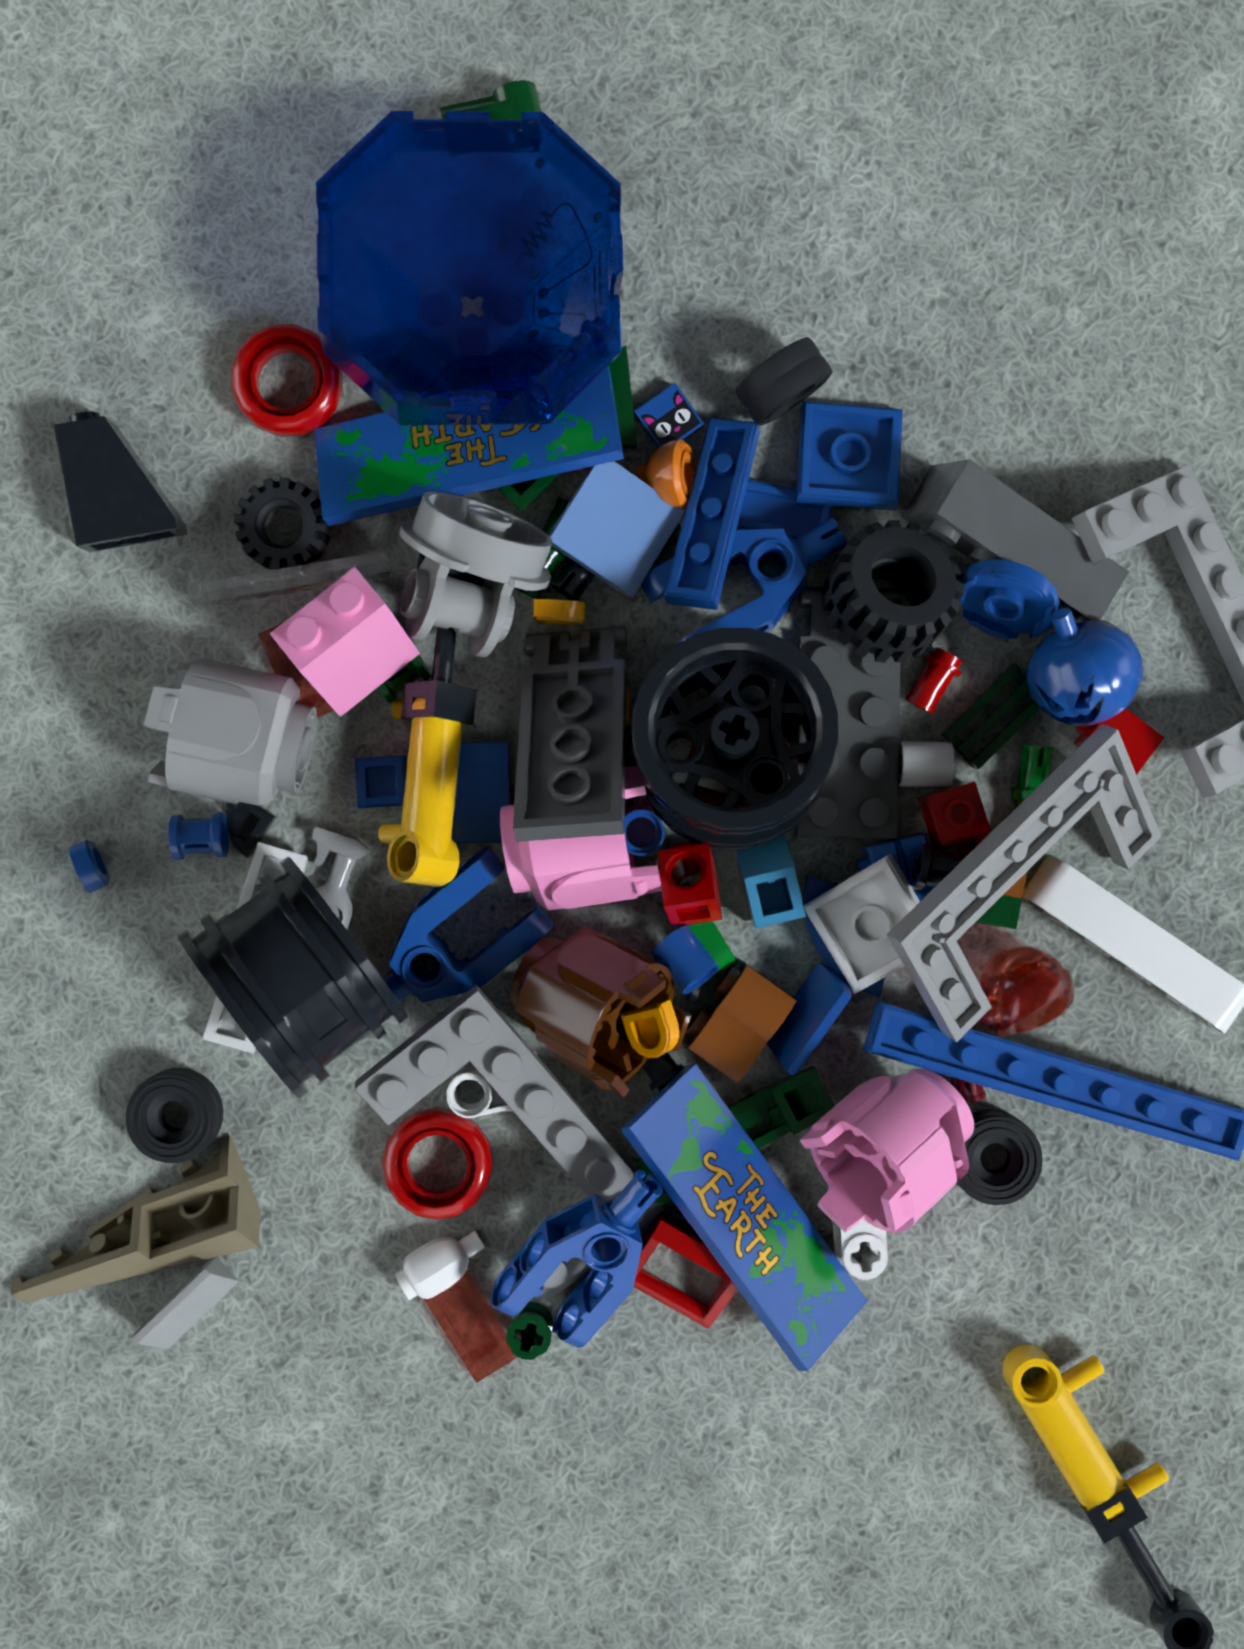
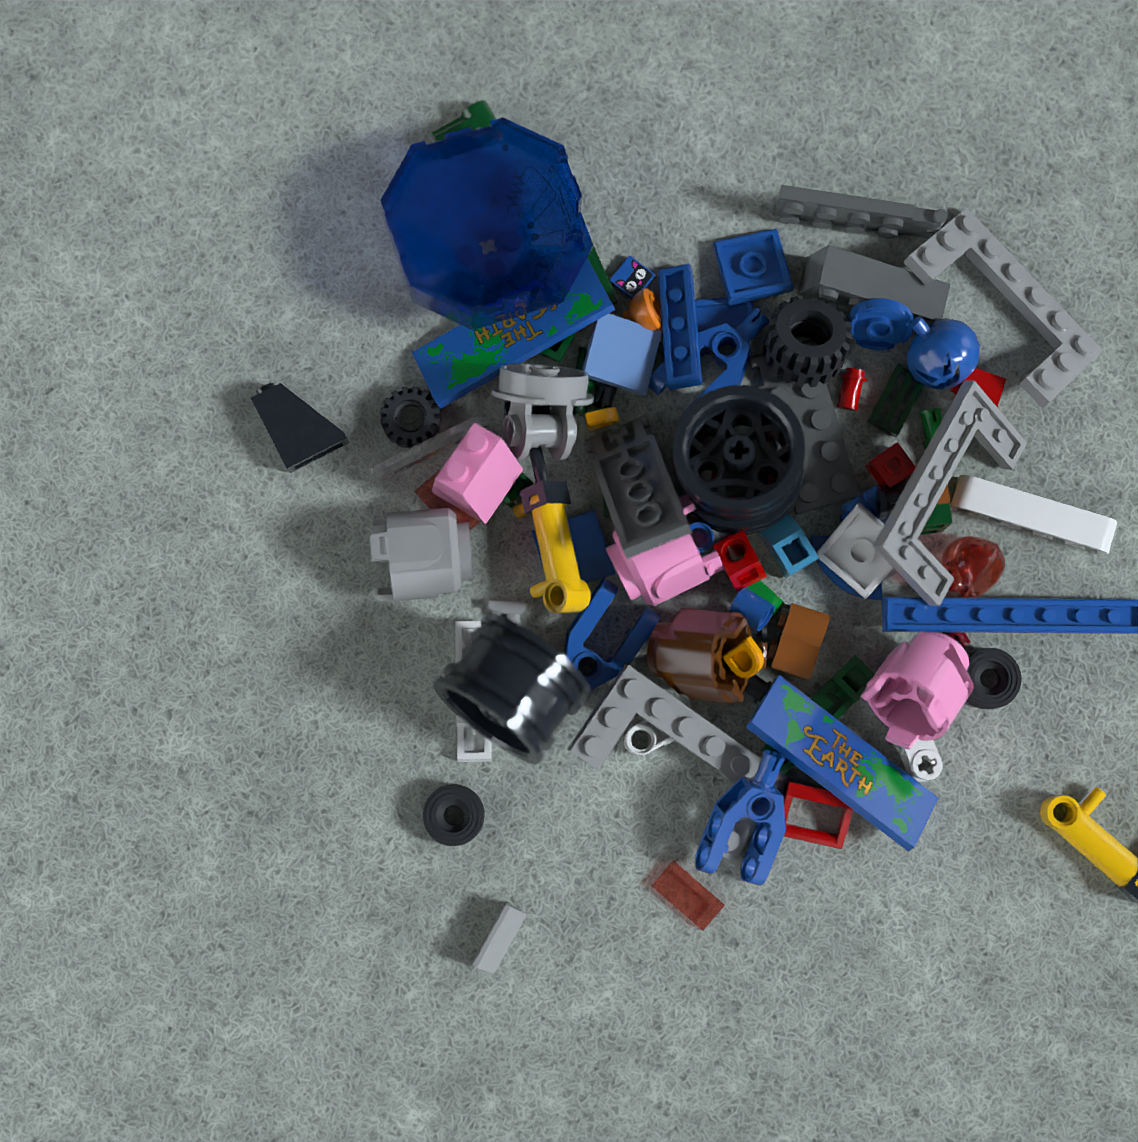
camera: 20 degrees left, 5 degrees down
(89, 865) = (352, 670): blue tile -> none
(193, 1221) = (485, 881): dark tan wedge -> none
(198, 836) = (415, 629): blue bush -> none
(247, 369) = (385, 301): red wheel -> none
(247, 825) = (443, 613): black tile -> none
(380, 781) = (521, 560): blue tile -> none
(429, 1202) = (660, 799): red wheel -> none
(437, 1265) = (653, 861): white plant -> none
(537, 1345) = (719, 875): dark green bush -> none
(783, 381) = (697, 233): black tyre -> none
(815, 1010) = (842, 624): blue slope -> none
(926, 764) = (863, 442): white beam -> none
(1026, 423) = (856, 213): none -> dark grey hinge

